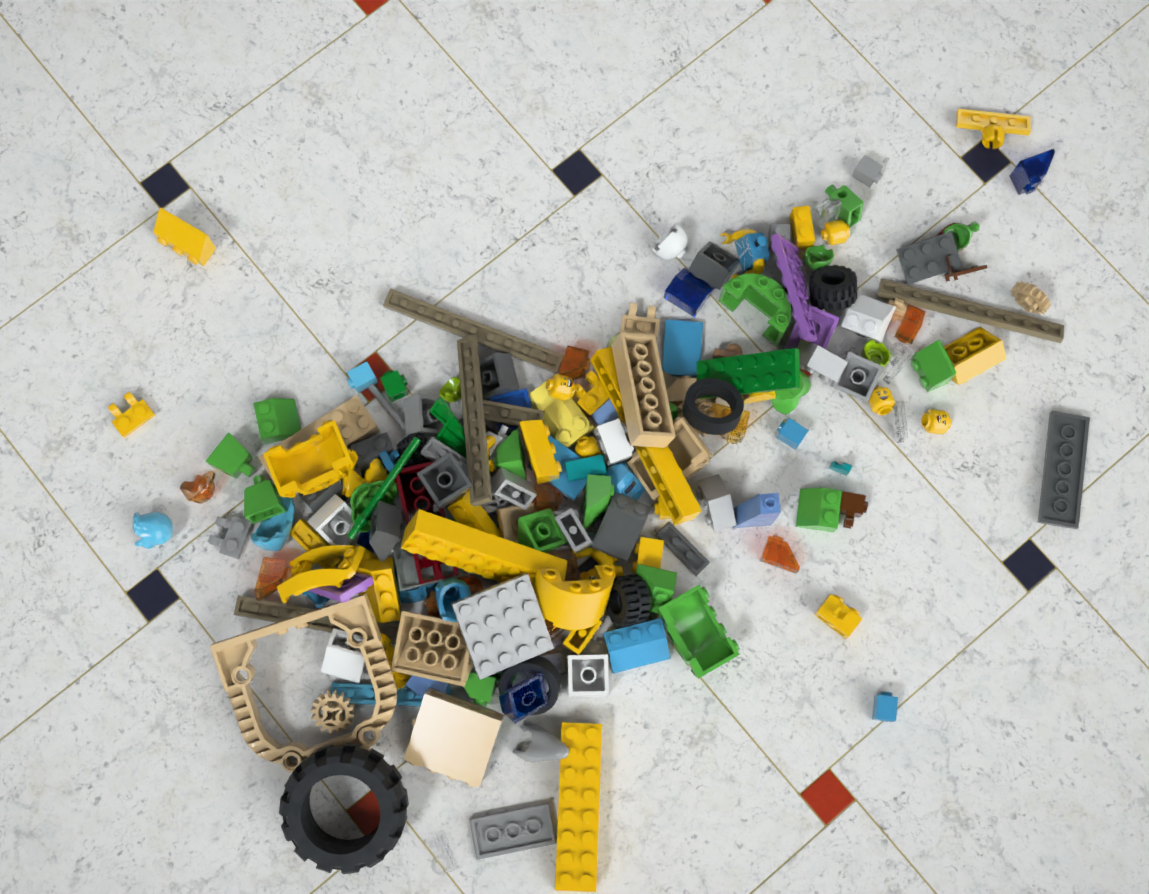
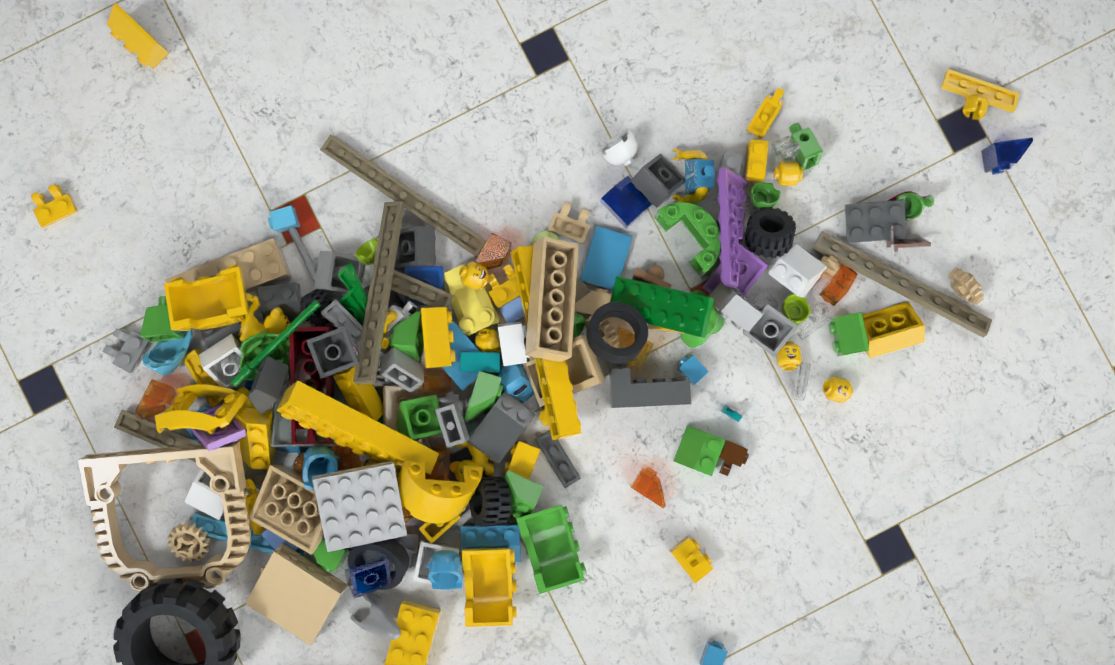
camera: 15 degrees right, 10 degrees up
(153, 528) = (50, 327): medium azure hair -> none
(200, 489) = (104, 297): clear orange piece -> none
(231, 458) = (141, 272): bright green torso -> none
(277, 419) = (193, 243): bright green slope -> none
(389, 461) = (290, 311): dark azure tile -> none
(394, 385) = (314, 234): green brick -> none
(600, 675) = (445, 570): none -> dark azure helmet
(645, 683) = (489, 586): none -> yellow cylinder
(717, 503) = (599, 423): light grey brick -> none
(755, 463) = (645, 394): none -> dark grey hinge
(758, 511) = (635, 443): medium blue slope -> none
(800, 184) = (765, 114): none -> yellow hinge
(868, 171) = (838, 116): light grey brick -> none
(1063, 470) = (950, 465): dark grey plate -> none

